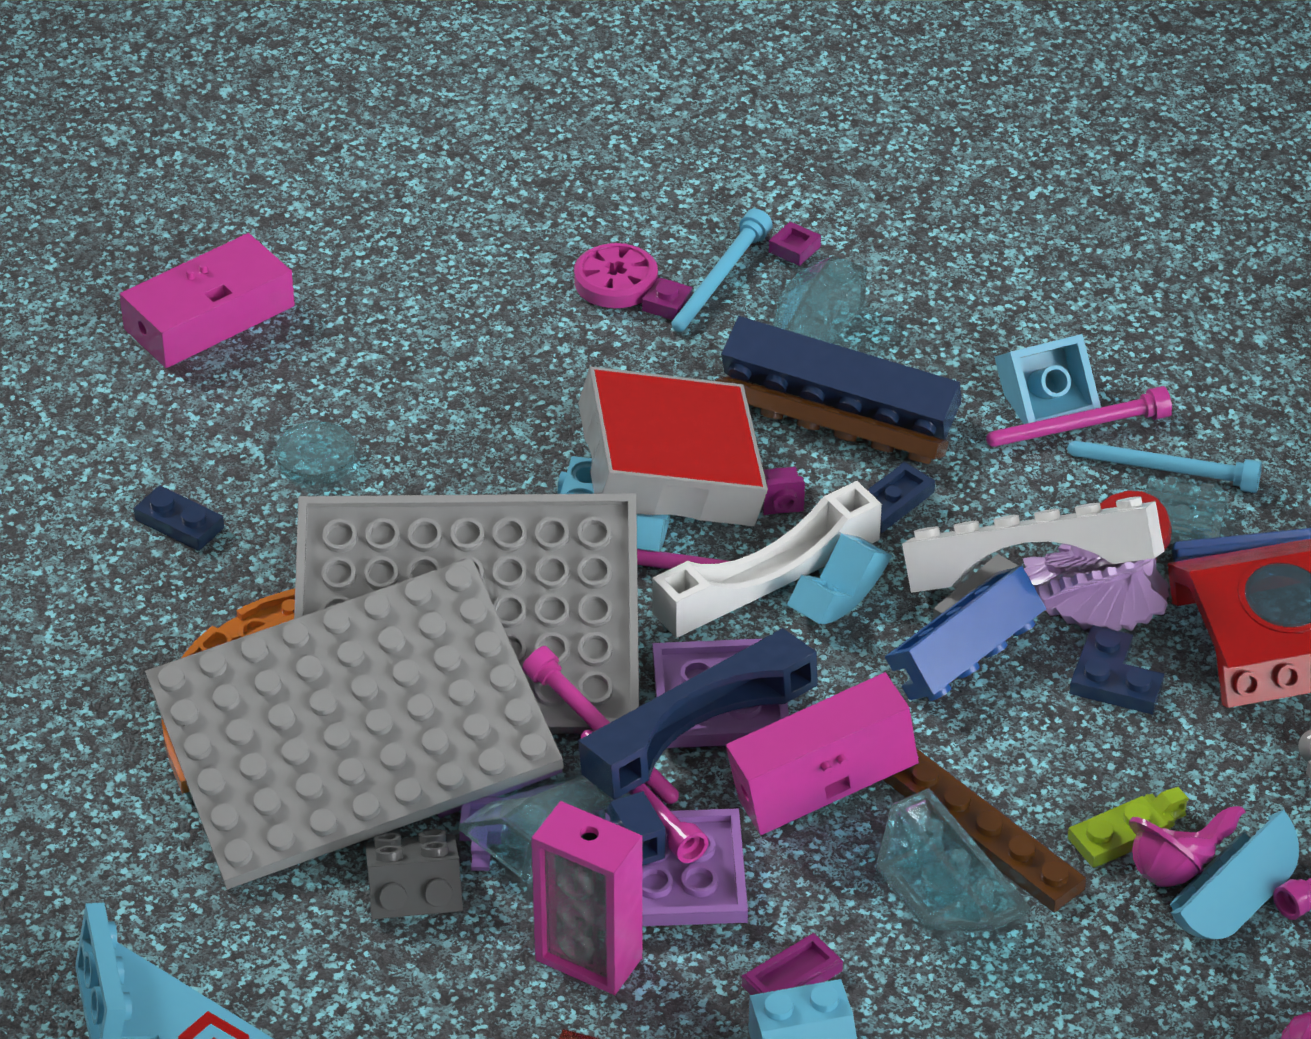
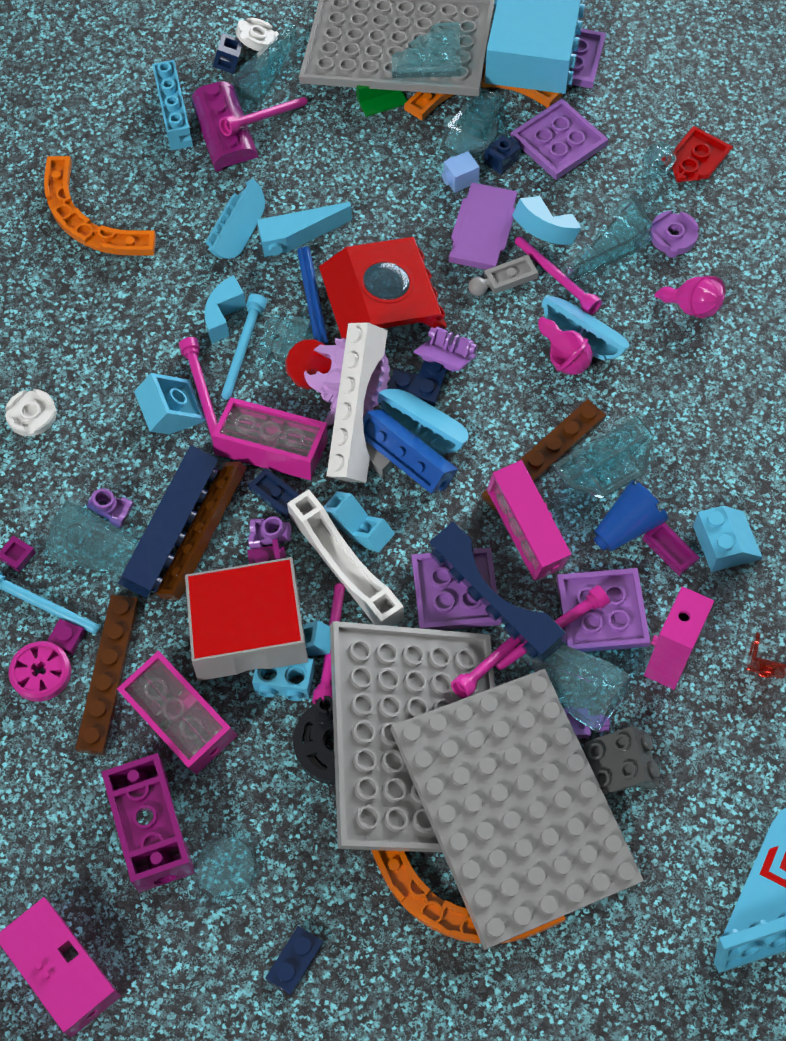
camera: 90 degrees left, 20 degrees up
(341, 352) = (153, 851): none -> magenta plate
(529, 392) = (177, 712): none -> clear brick
(609, 339) = (107, 675): none -> reddish brown plate
(640, 817) = (595, 625): dark blue brick -> none
(823, 481) = (264, 531): none -> medium lavender plate
(845, 906) = (629, 518): none -> blue cone
(868, 327) = (112, 508): none -> medium lavender plate
(986, 469) = (270, 438): none -> brick
(1033, 252) = (30, 412): none -> white tile
(1033, 661) = (424, 420): none -> medium azure brick
(1109, 834) = (542, 379): lime hinge -> none
(1163, 689) = (440, 350): none -> medium lavender hinge
(1241, 429) = (223, 300): none -> medium azure brick

